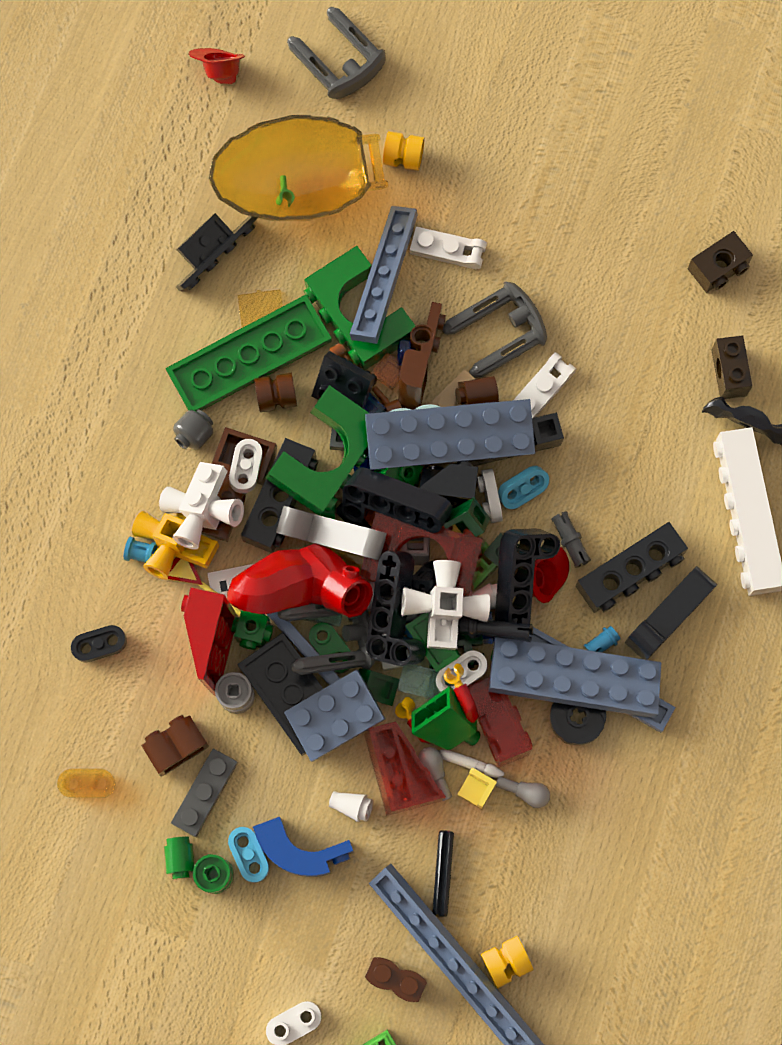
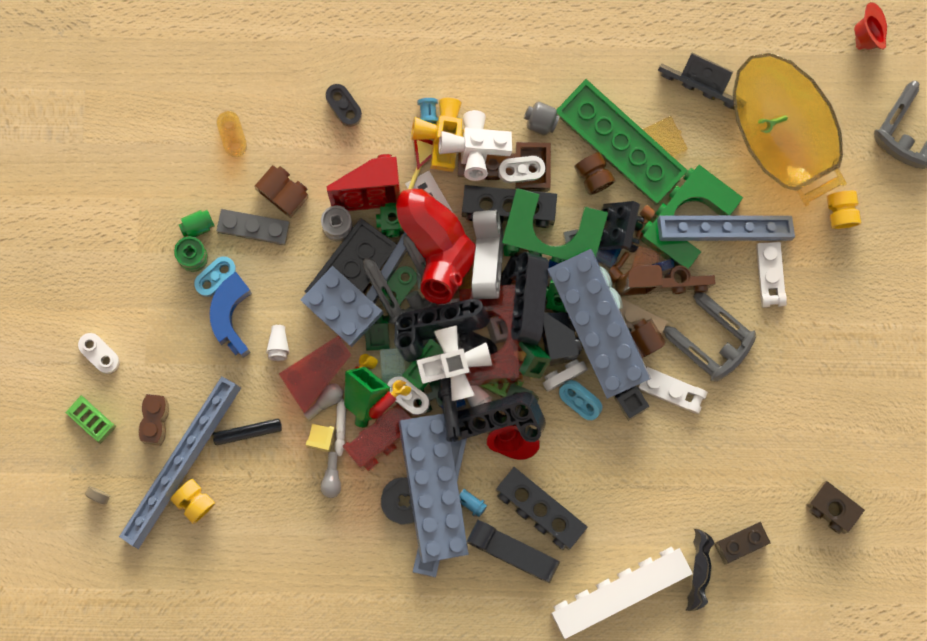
camera: 65 degrees right, 5 degrees up
(571, 539) = (549, 452): dark grey pin -> none

